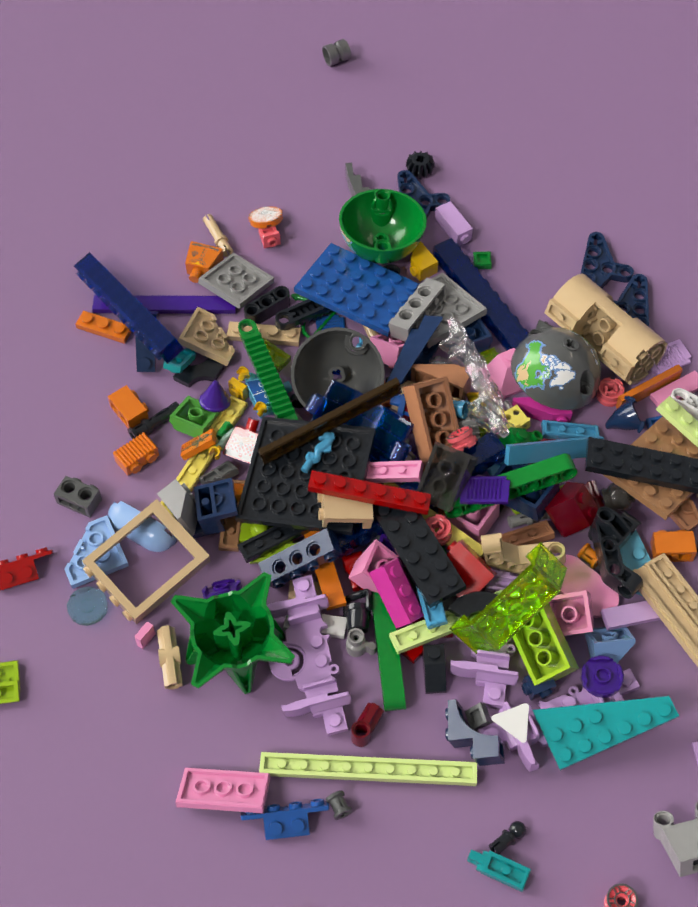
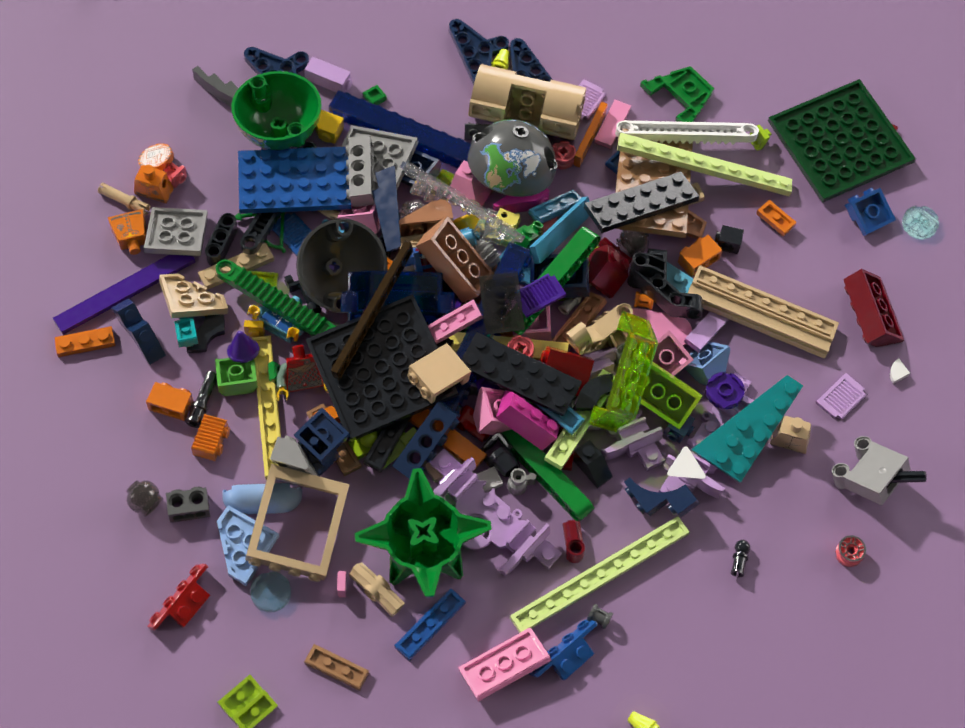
camera: 40 degrees left, 5 degrees up
(47, 469) = (143, 497): none -> clear smoke piece
(89, 701) = (336, 667): none -> medium nougat tile
(128, 308) = (104, 310): clear blue brick -> none
(191, 716) = (430, 624): none -> blue tile
(198, 444) = (260, 396): orange tile -> none
(221, 586) = (378, 506): dark purple tile -> none
(222, 472) = (296, 411): dark grey tile -> none
(242, 231) = (153, 184): none -> orange torso
(323, 446) = (381, 335): dark azure animal -> none
(369, 492) = (452, 351): red plate -> none
(420, 164) = (257, 35): black gear -> none
(462, 438) = (490, 261): coral wheel -> none
(478, 716) = (652, 480): dark grey plate -> none
(500, 868) = (751, 584): teal hinge -> none
(614, 286) = (501, 59): none -> neon yellow cone
(625, 417) = (591, 169): dark blue hat -> none
(642, 757) = (792, 434): none -> tan torso

